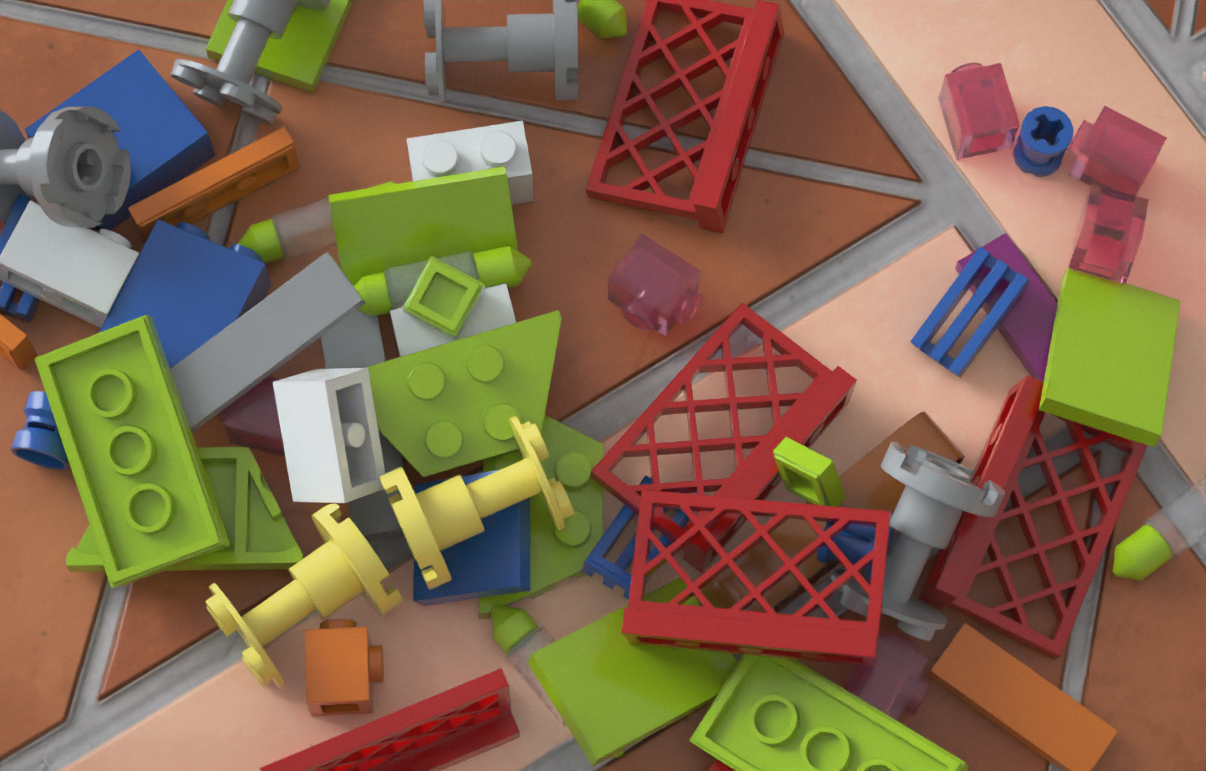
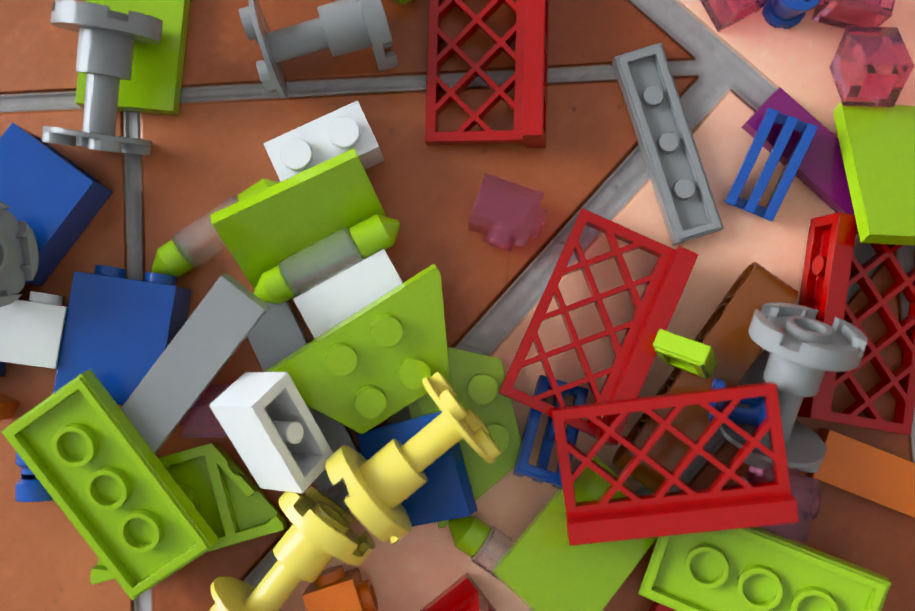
camera: 10 degrees left, 15 degrees up
(218, 184) = (117, 222): orange tile -> none
(443, 297) = (334, 279): lime tile -> none
(862, 264) = (667, 144): none -> light grey tile

